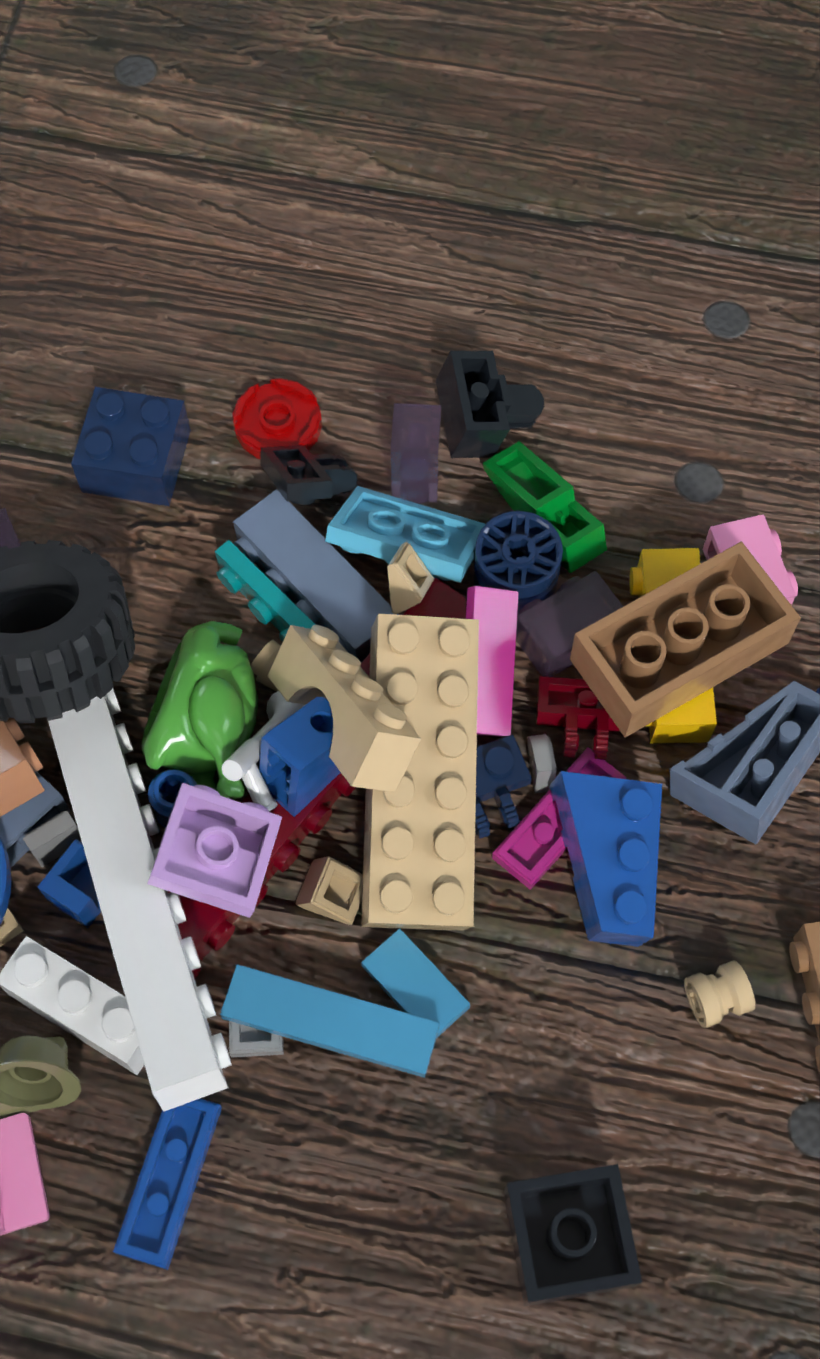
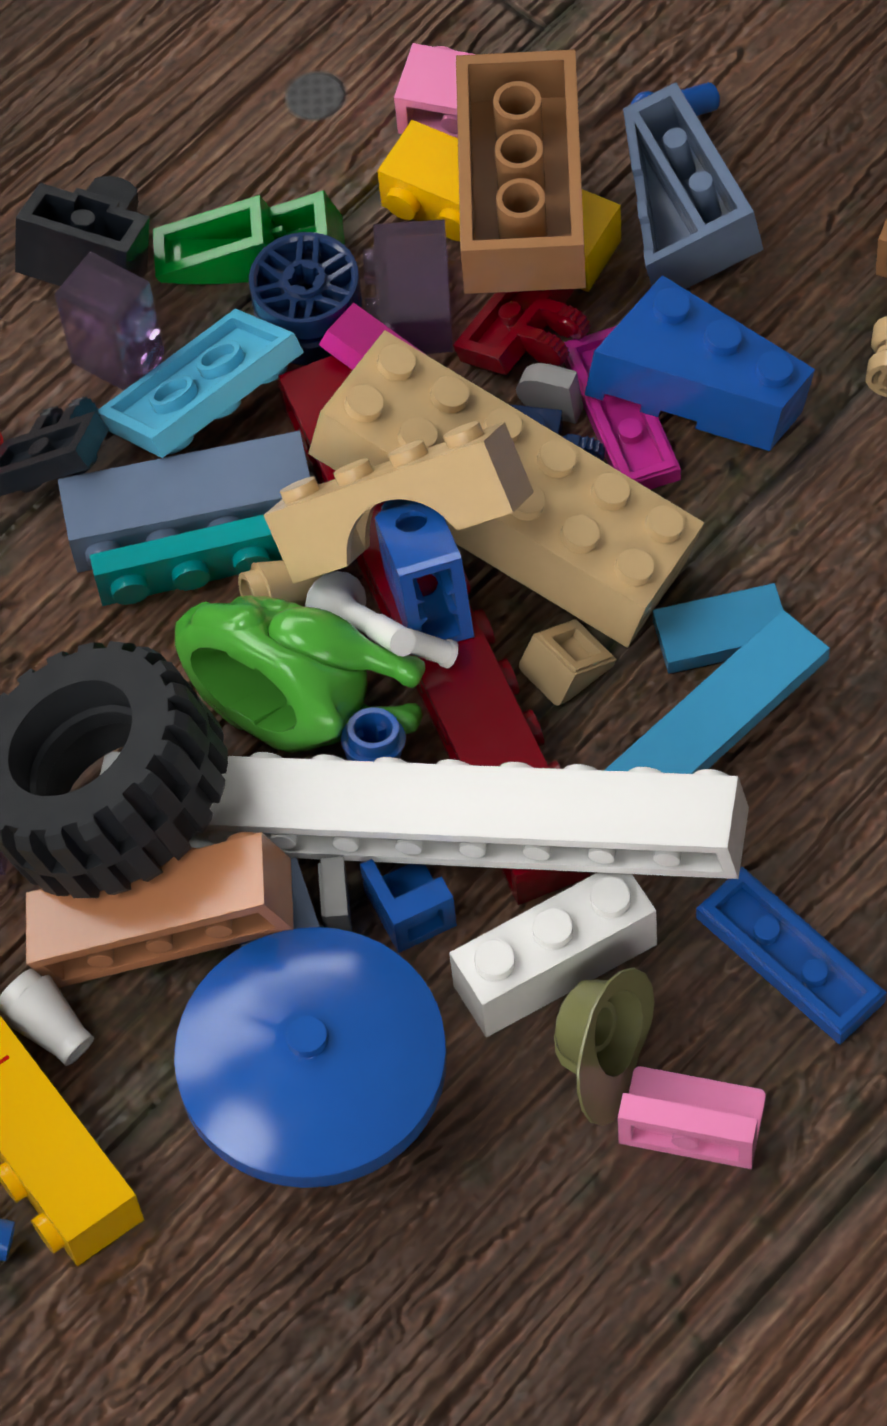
camera: 55 degrees left, 5 degrees down
(215, 849) = (479, 701): lavender plate -> none
(407, 579) = (274, 396): tan slope -> none

